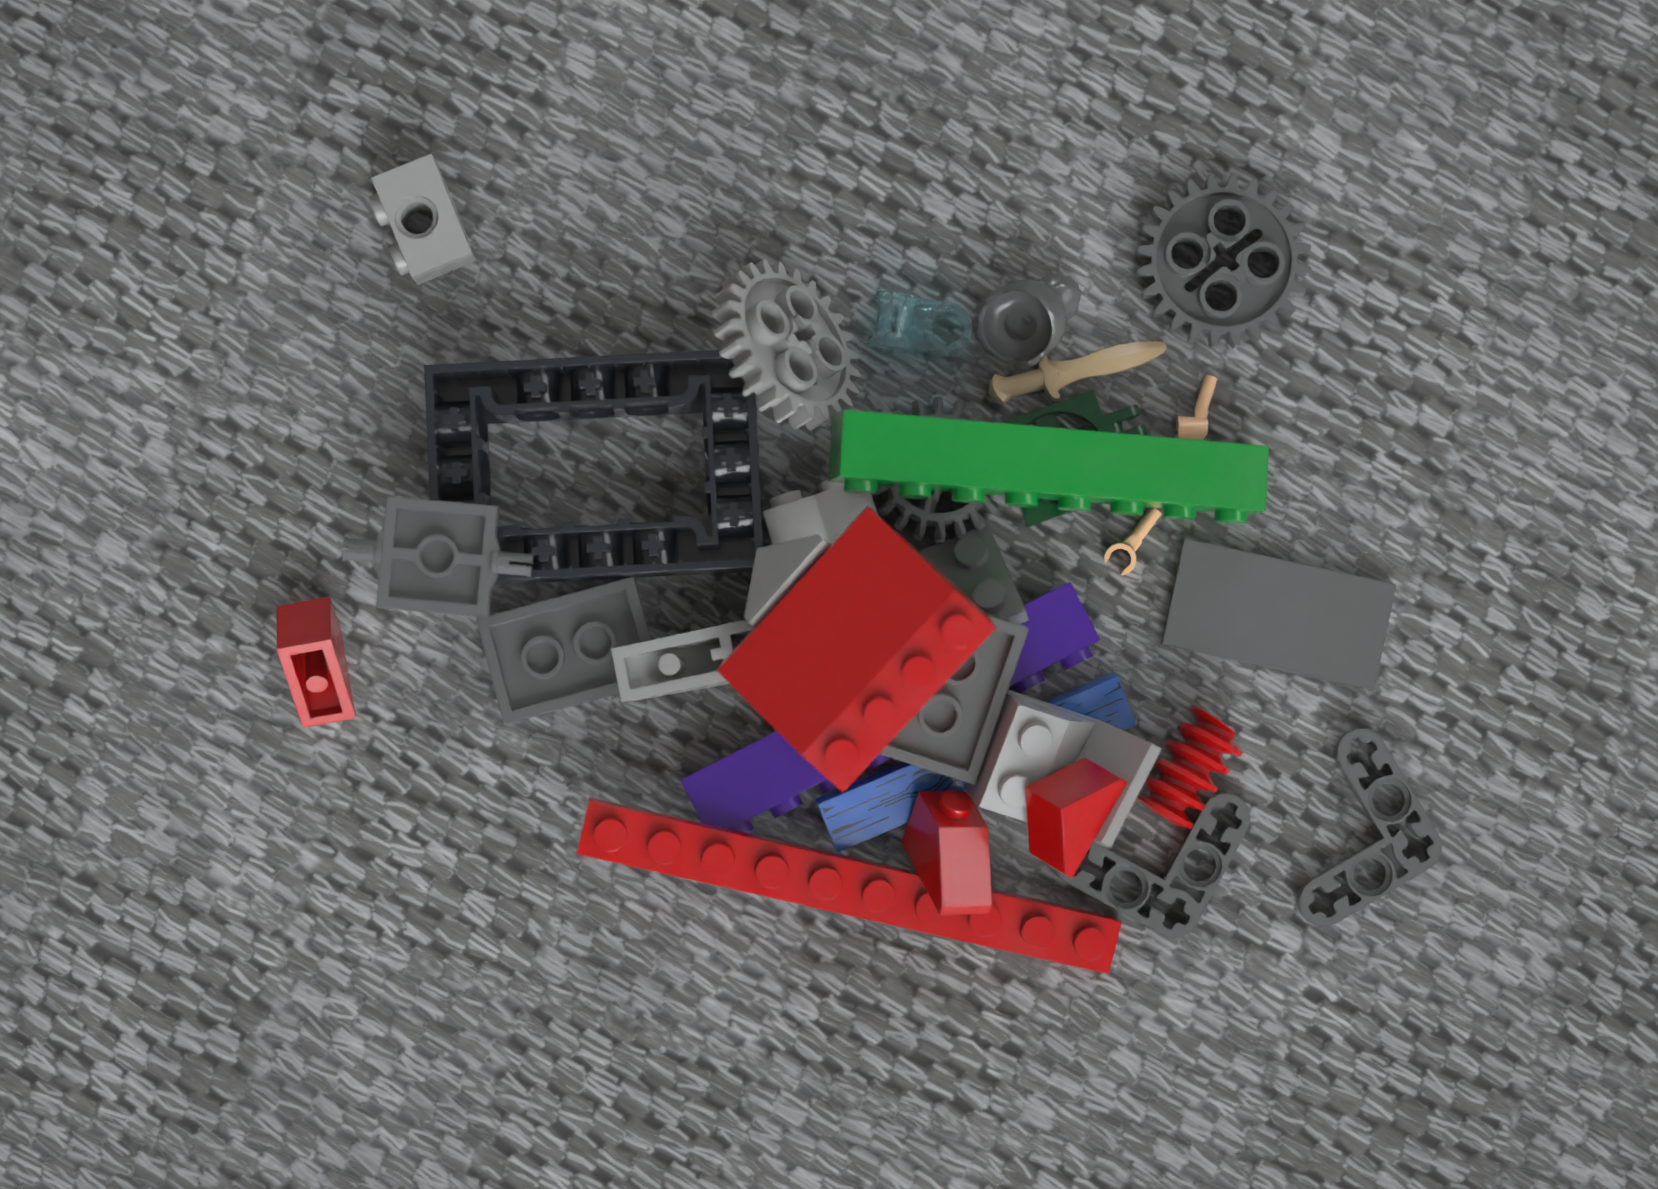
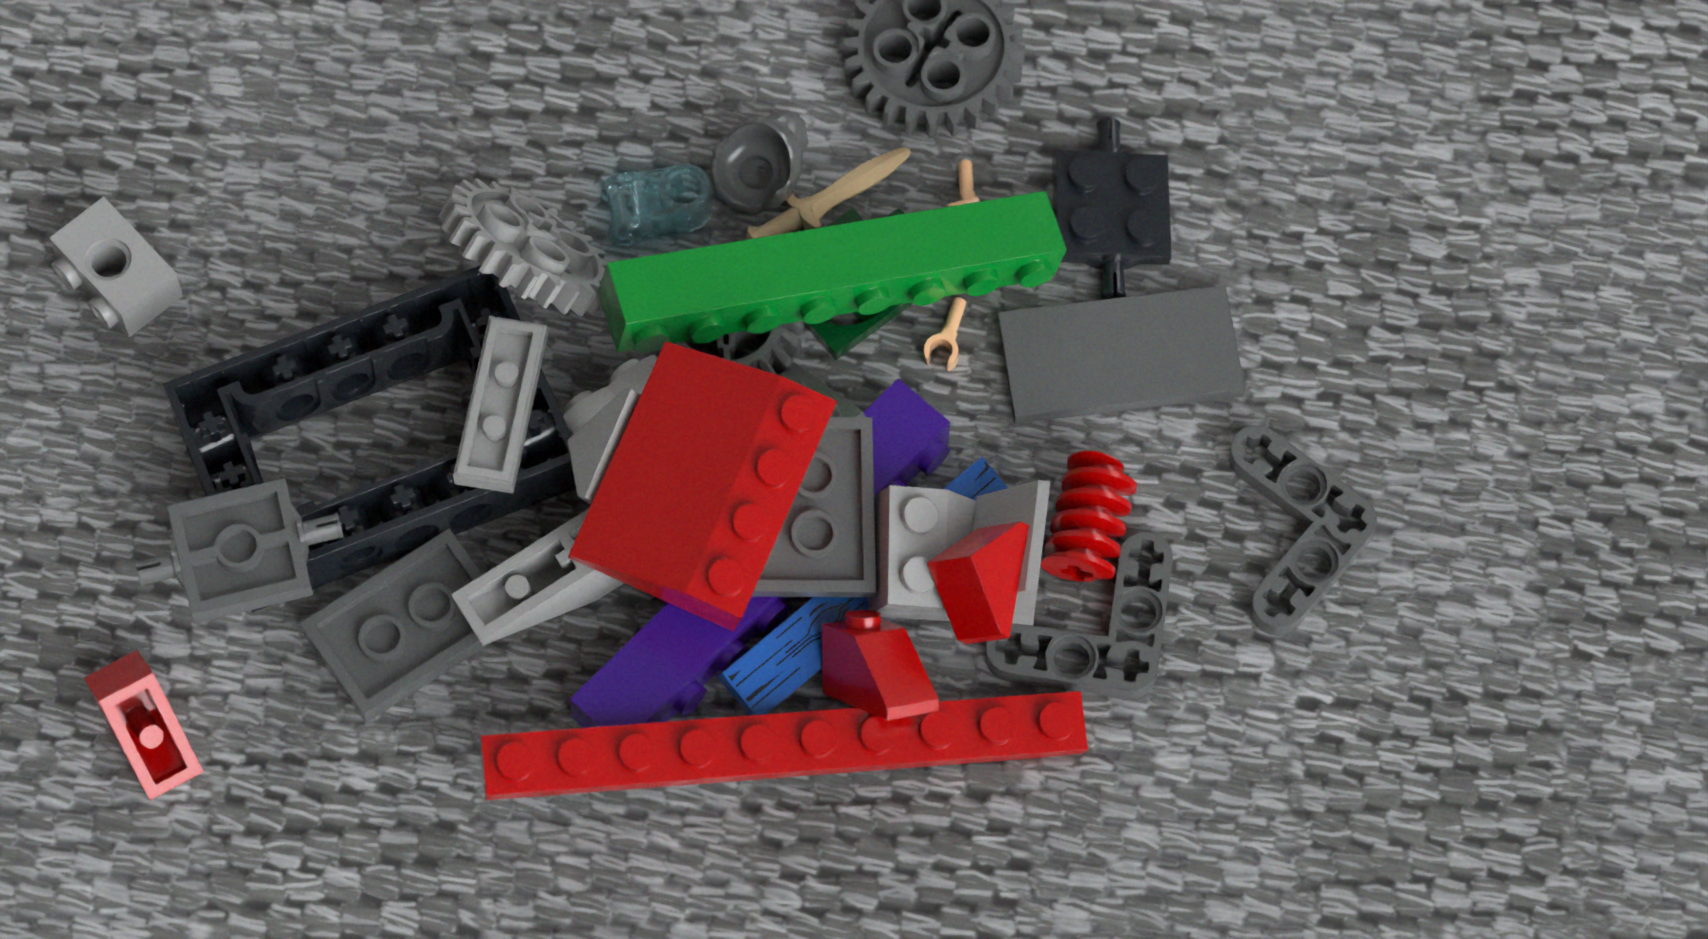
camera: 20 degrees left, 20 degrees down
(710, 494) = (500, 404): none -> light grey tile
(1325, 470) = (1112, 207): none -> black plate

